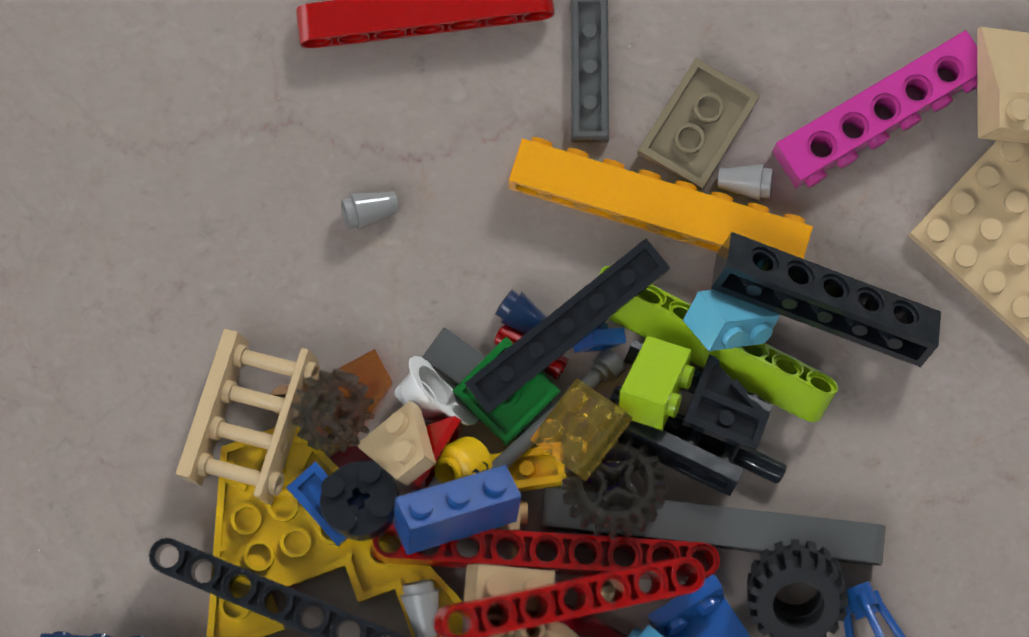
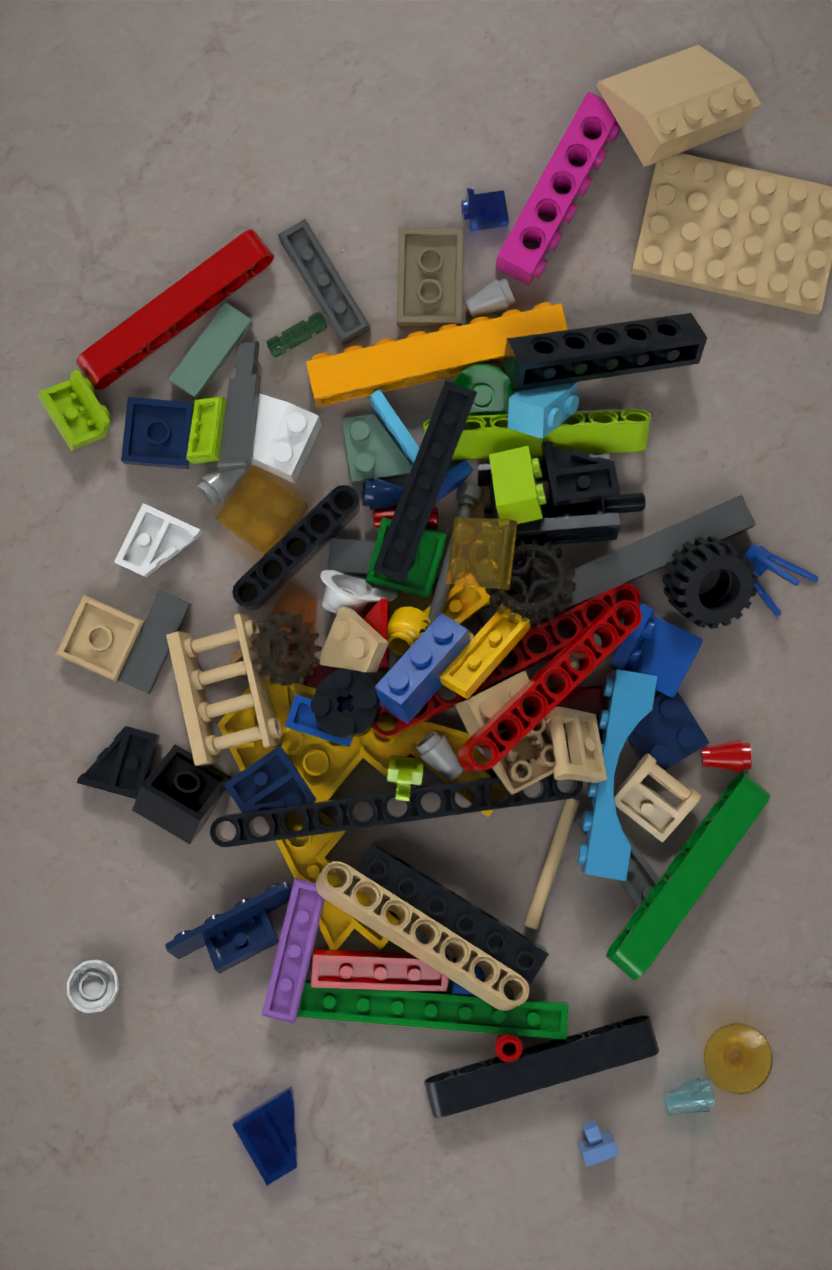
camera: 30 degrees left, 5 degrees up
(106, 432) = (123, 764): none -> black wing
(144, 495) = (180, 794): none -> black slope
(157, 294) = (100, 638): none -> tan plate
(204, 330) = (151, 644): none -> dark grey tile
(237, 535) = (269, 784): none -> dark blue wing
(267, 57) = (76, 411): none -> lime bracket
(267, 228) = (154, 541): none -> white wing
(335, 124) = (157, 432): none -> dark blue plate
(377, 605) = (405, 773): none -> lime plate
(384, 315) = (300, 532): none -> black beam
(385, 149) = (206, 430): none -> lime plate
(390, 261) = (261, 511): none -> clear yellow plate
(429, 149) = (241, 411): none -> dark grey piece
(436, 72) = (210, 350): none -> sand green tile
(441, 184) = (283, 437): none -> white slope
(524, 530) = (483, 654): none -> yellow plate
(531, 104) = (296, 334): none -> clear green axle
(537, 264) = (372, 450): none -> sand green wing
(573, 251) = (394, 426): none -> medium azure tile
(689, 265) = (492, 388): none -> green tile
(795, 88) = (485, 210): none -> clear blue bracket

